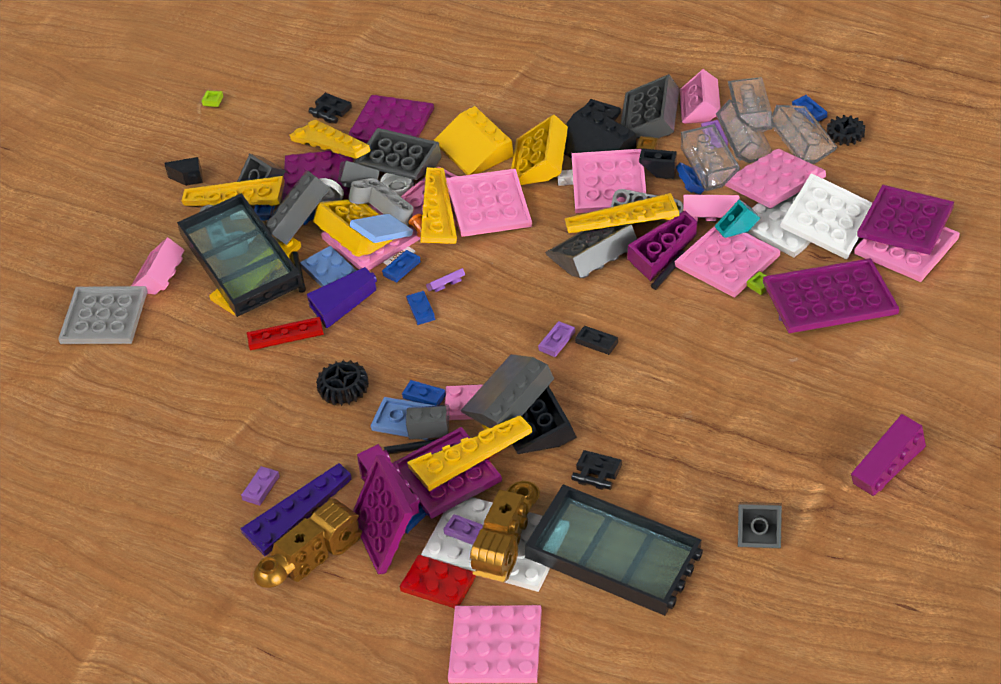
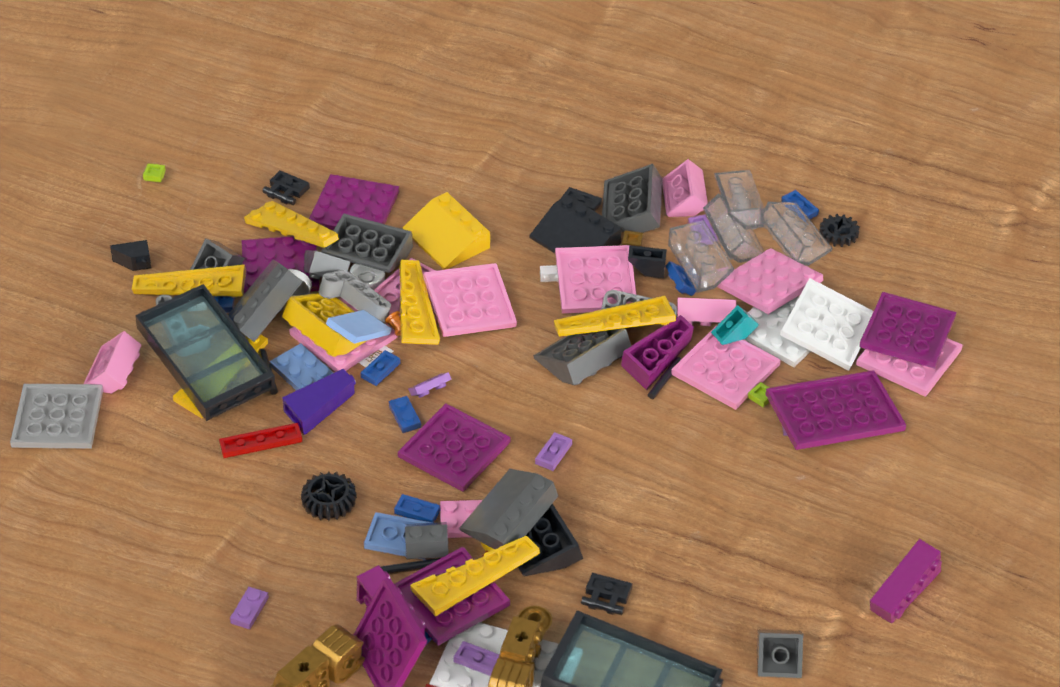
camera: 10 degrees left, 0 degrees up
(289, 512) = (267, 651): dark purple wing -> none
(463, 336) = (454, 447): none -> magenta plate
(540, 152) = (520, 244): yellow slope -> none
(596, 340) = (595, 453): black plate -> none

